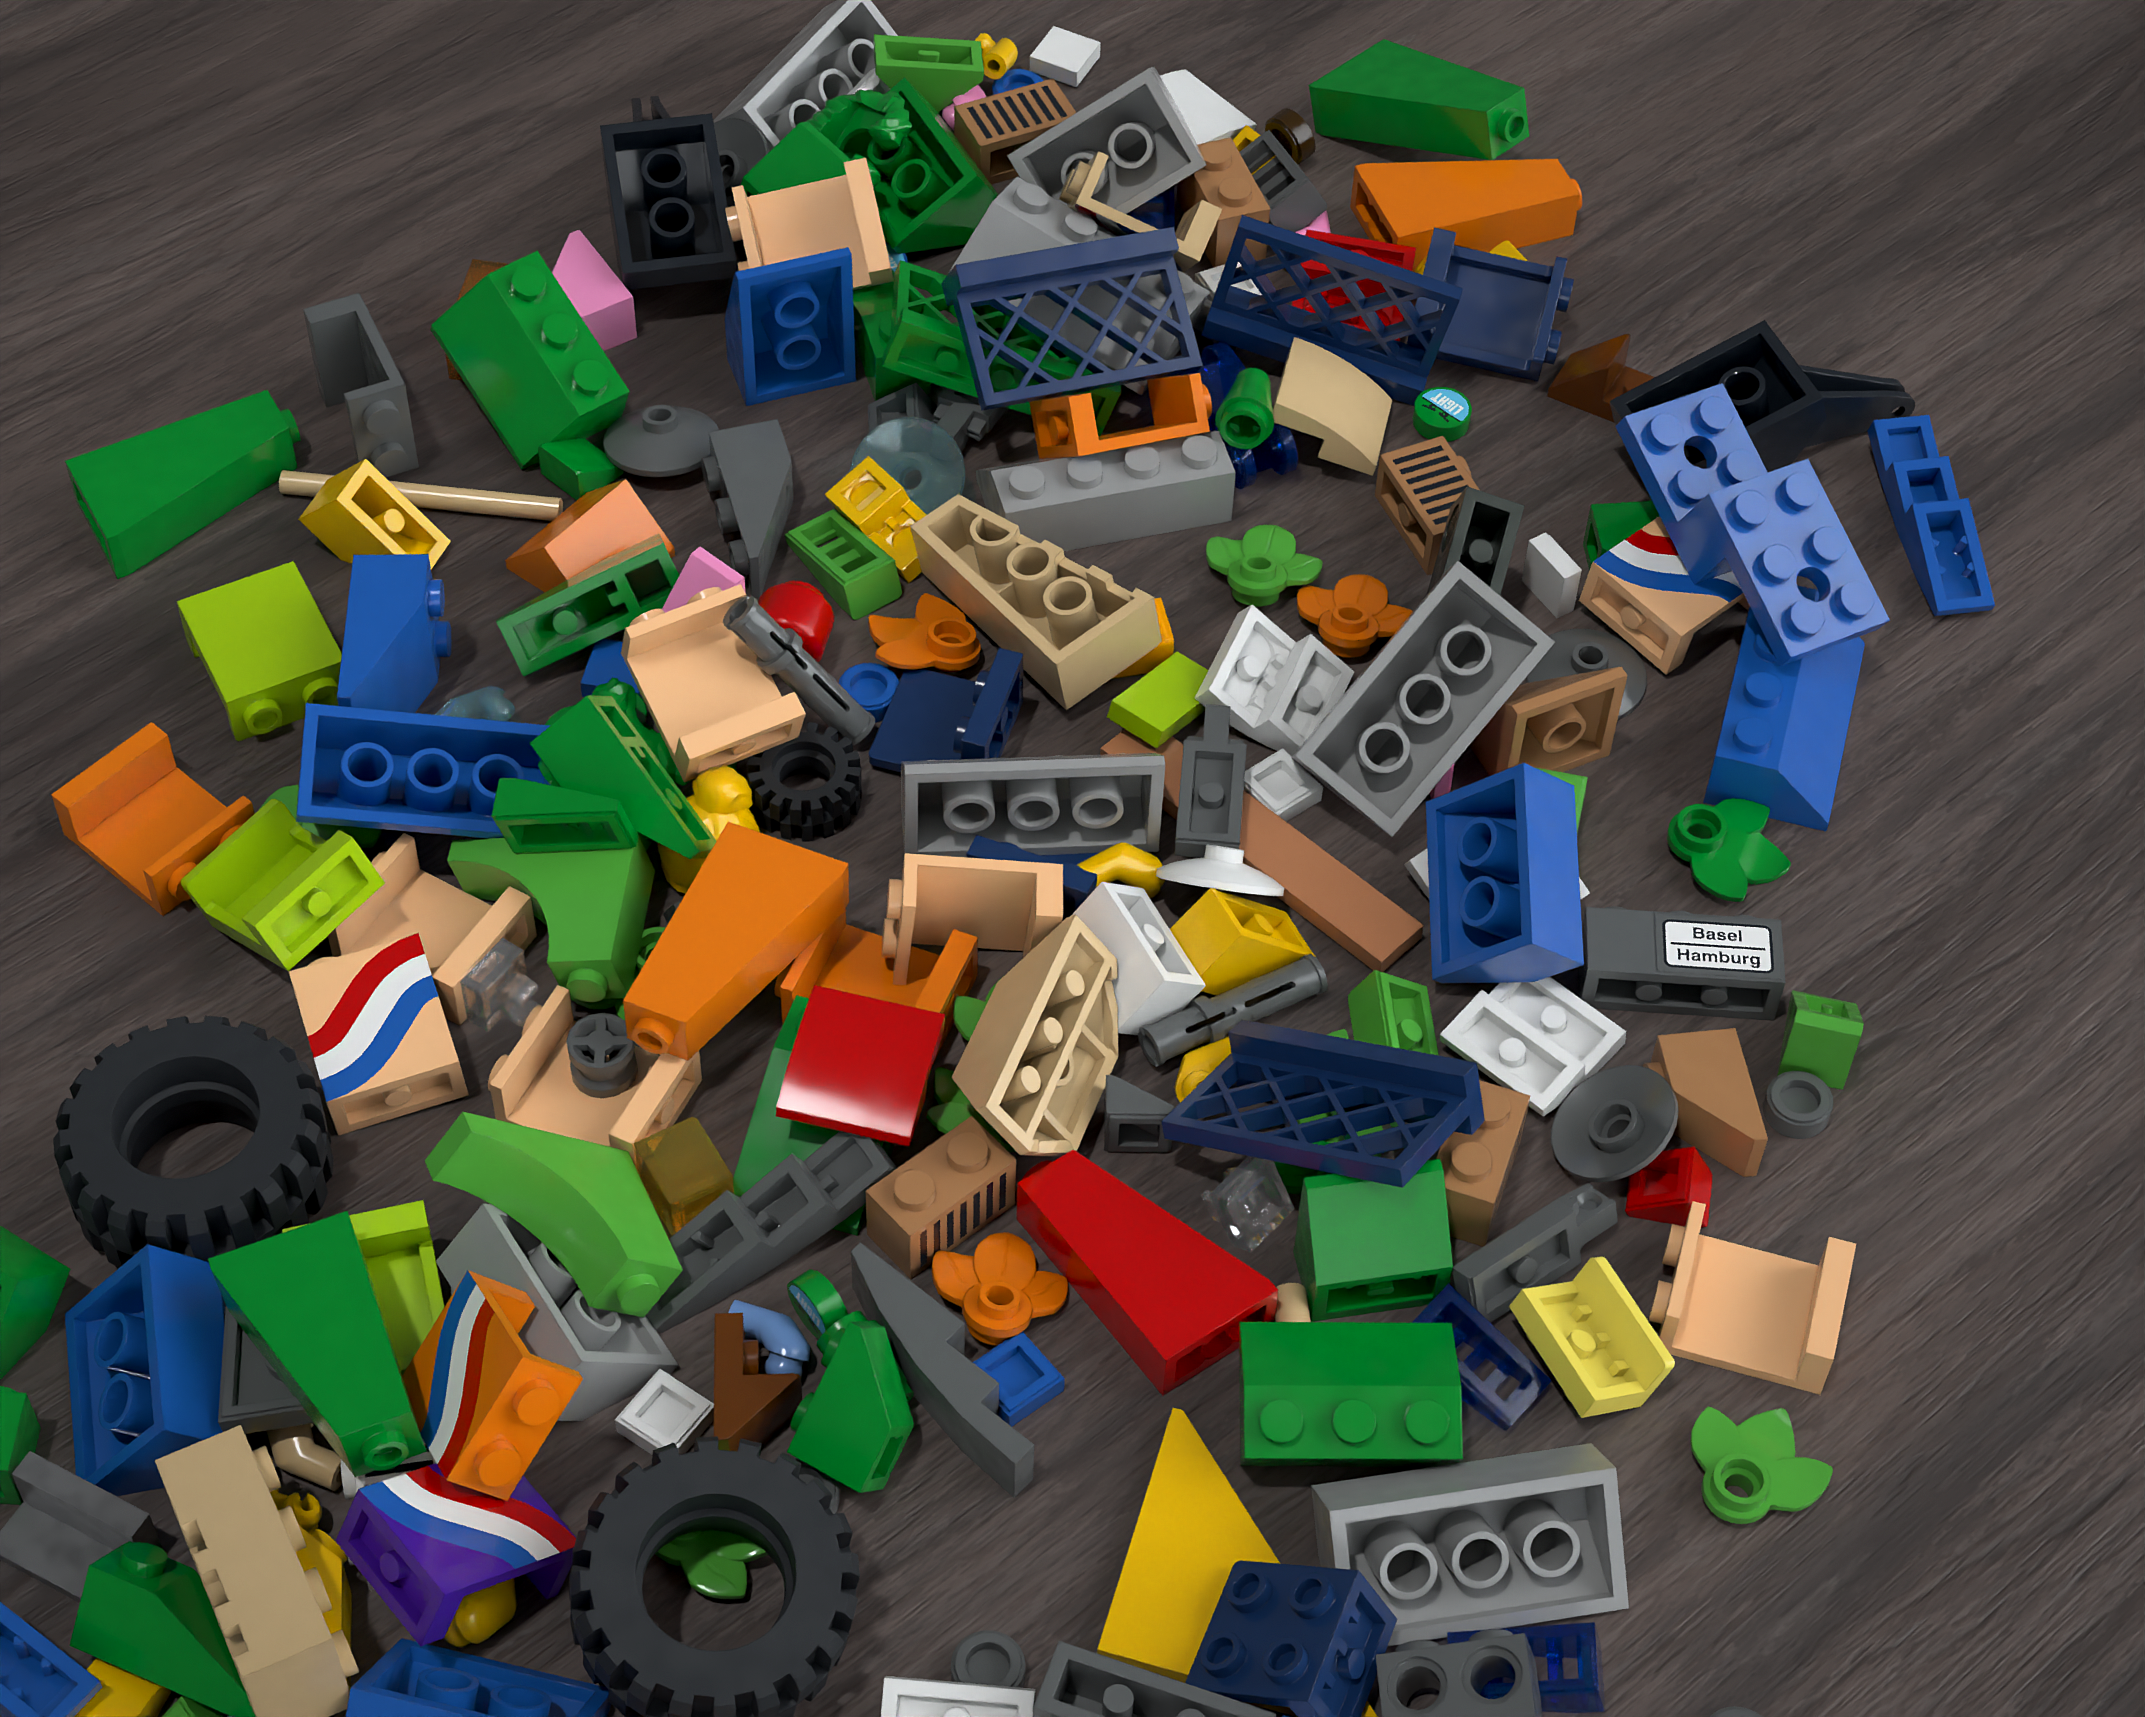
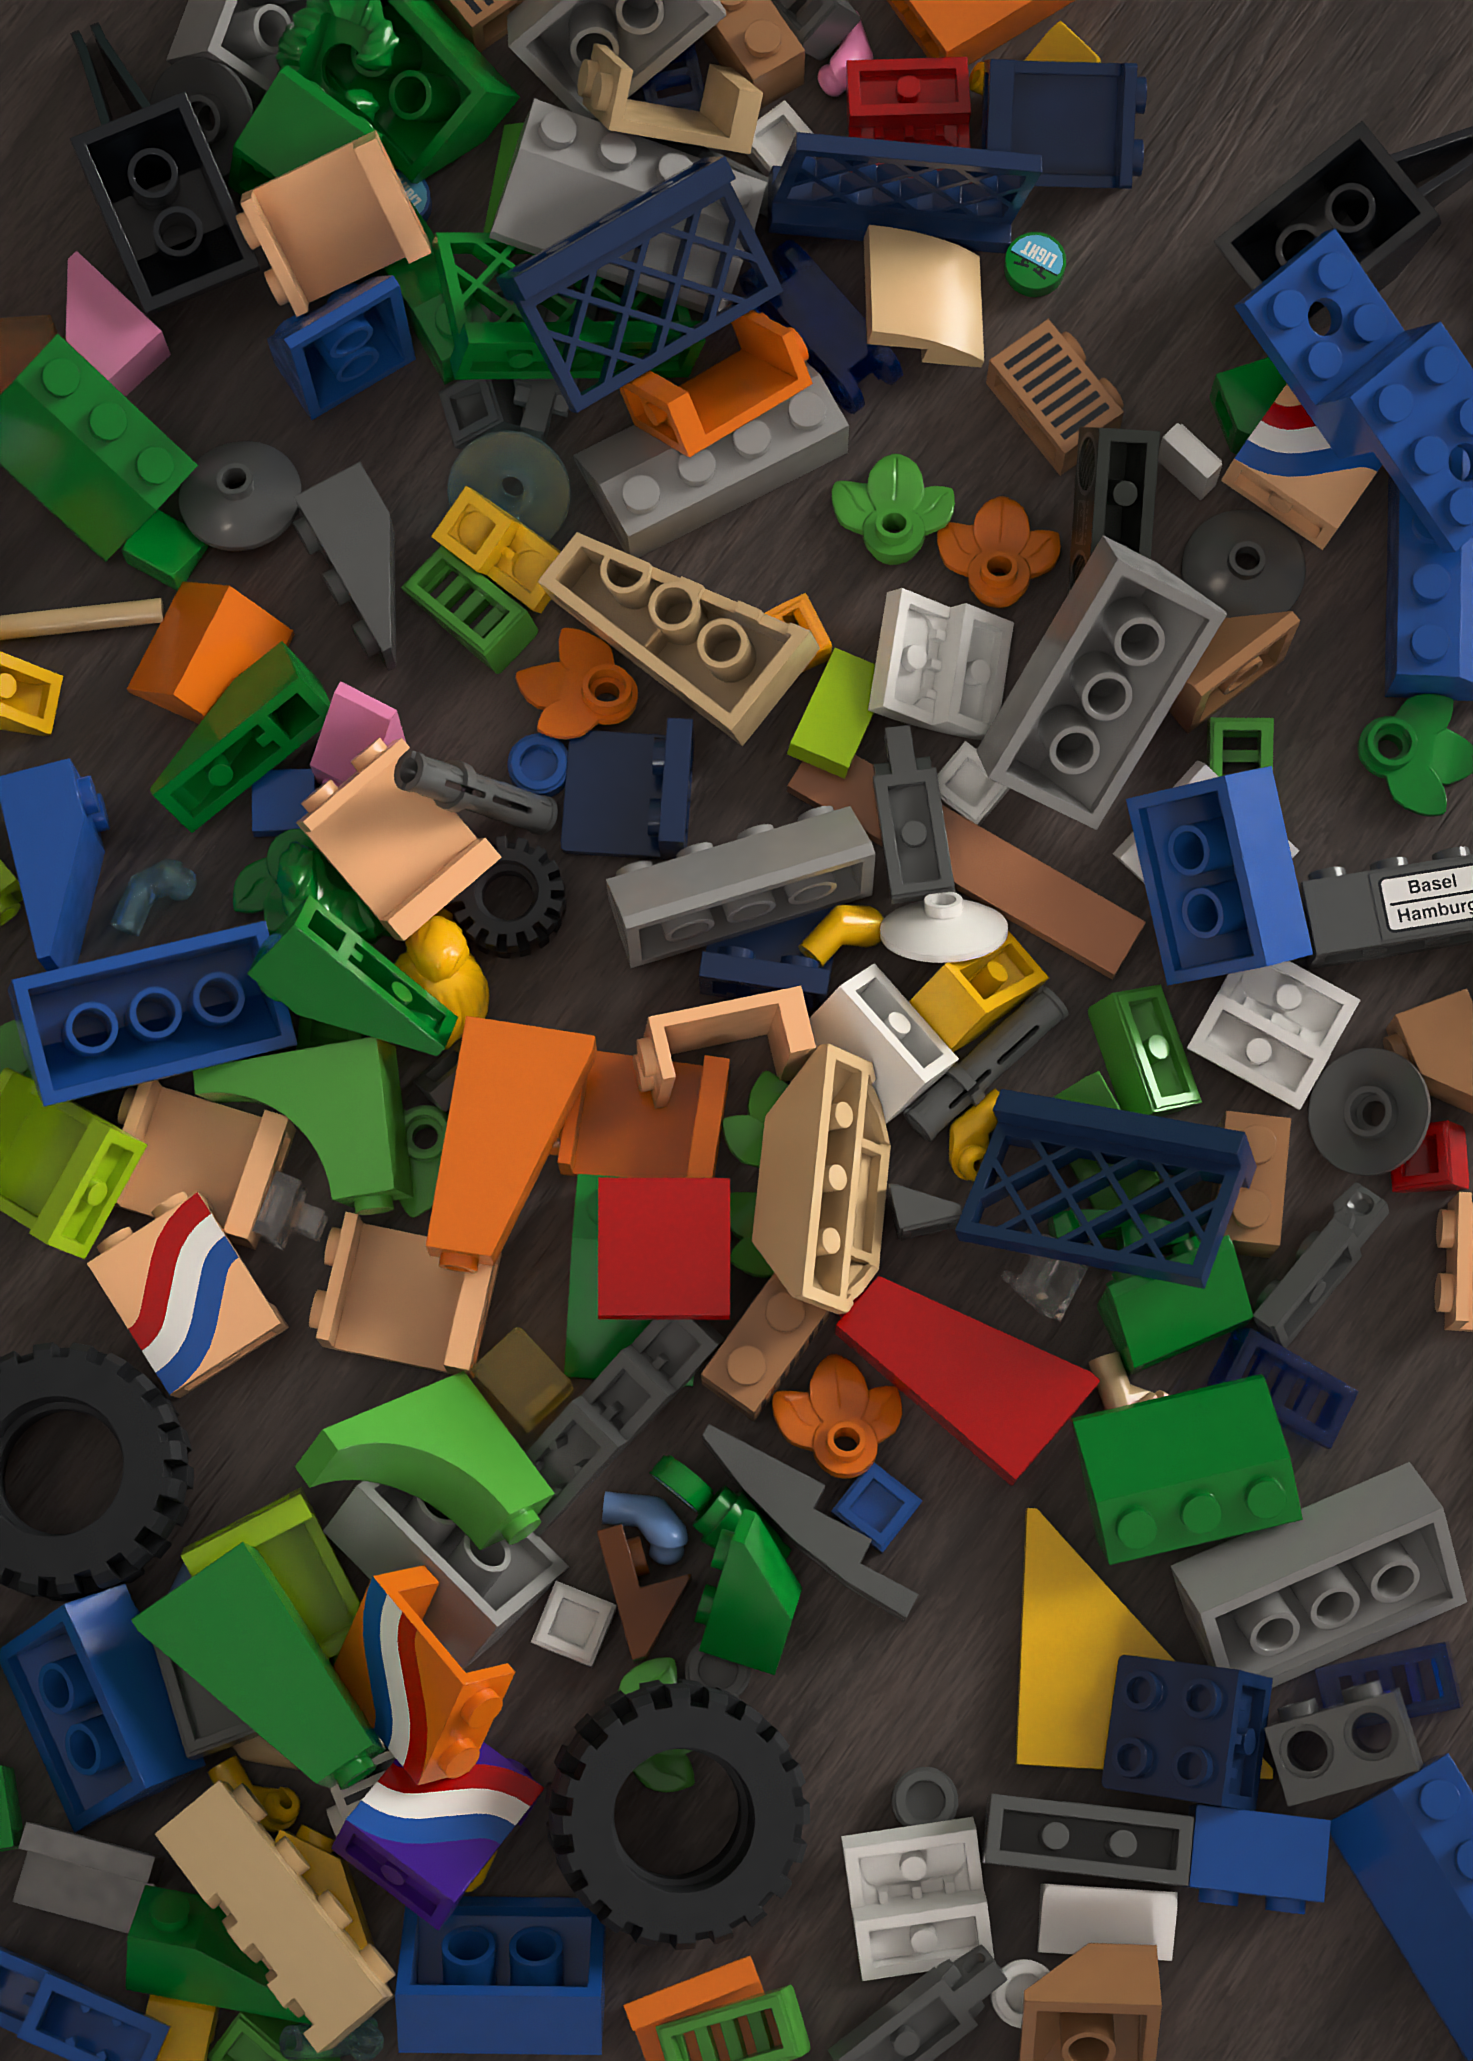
camera: 10 degrees left, 25 degrees up
(559, 819) = (284, 1049): green slope -> none
(589, 1045) = (403, 1256): dark grey wheel -> none
(802, 609) = (444, 715): red head -> none
(1247, 410) = (844, 345): green cone -> none
(1594, 1340) = (1390, 1349): light yellow bracket -> none
(1596, 377) = (1195, 186): reddish brown slope -> none

